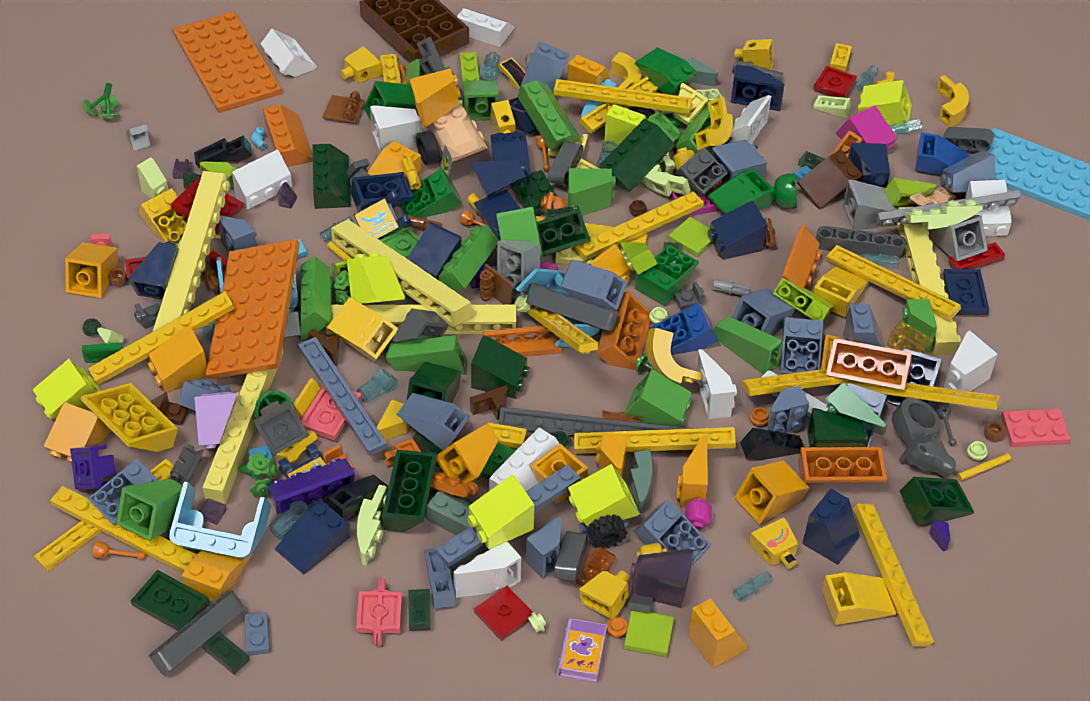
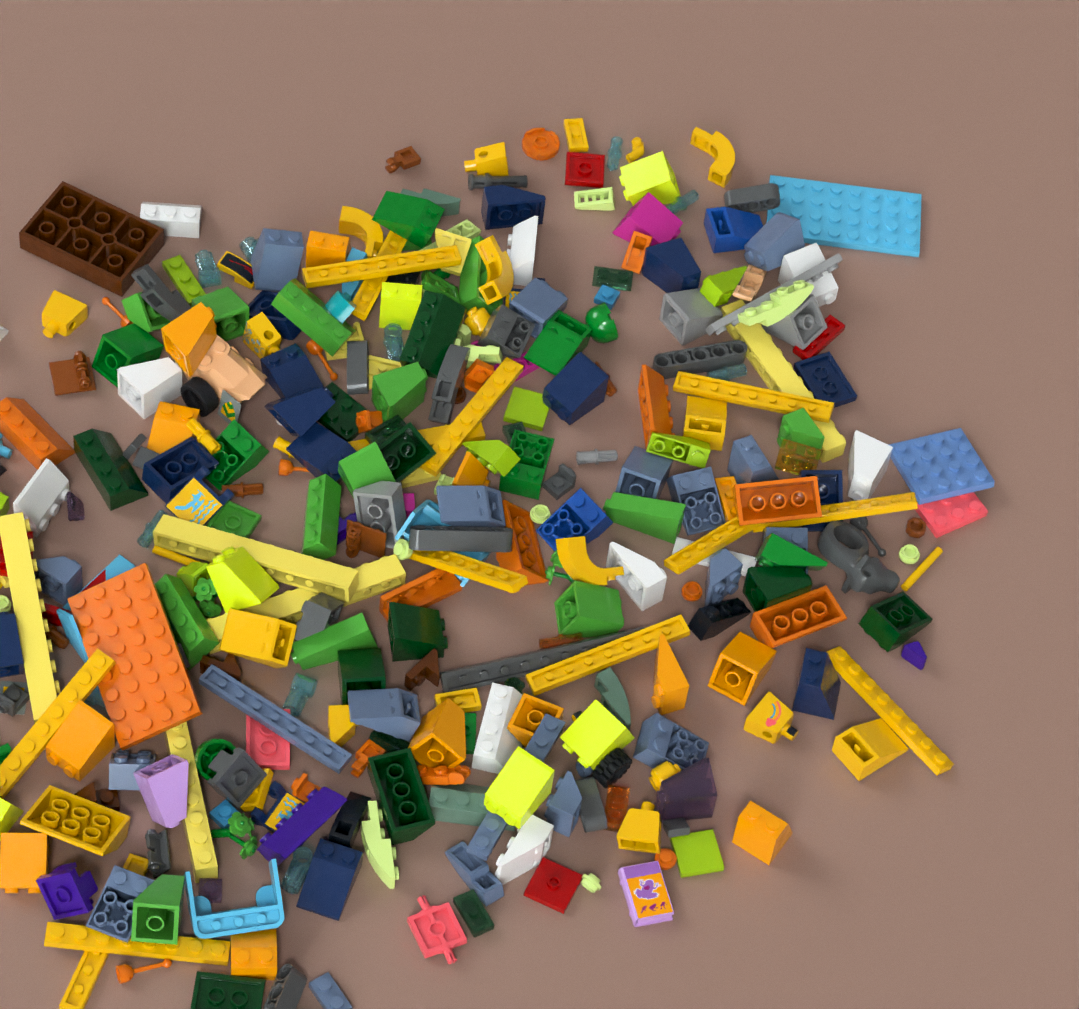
camera: 30 degrees left, 5 degrees up
(306, 397) = (238, 730): yellow slope -> none
(390, 68) = (97, 310): yellow tile -> none
(435, 249) = (280, 520): dark blue slope -> none
(573, 114) = (340, 306): none -> teal brick
(612, 451) = (578, 687): light orange slope -> none
(633, 191) = (447, 383): none -> dark grey slope
(661, 196) = (477, 375): none -> orange bracket
(691, 36) = (405, 158): none -> dark orange plate
(699, 513) = (686, 715): dark pink head -> none
(752, 586) = (768, 770): clear light blue axle -> none
(808, 56) = (540, 144): none -> orange tile
(829, 179) = (637, 294): reddish brown slope -> none
(1041, 388) = (940, 466): none -> medium blue plate

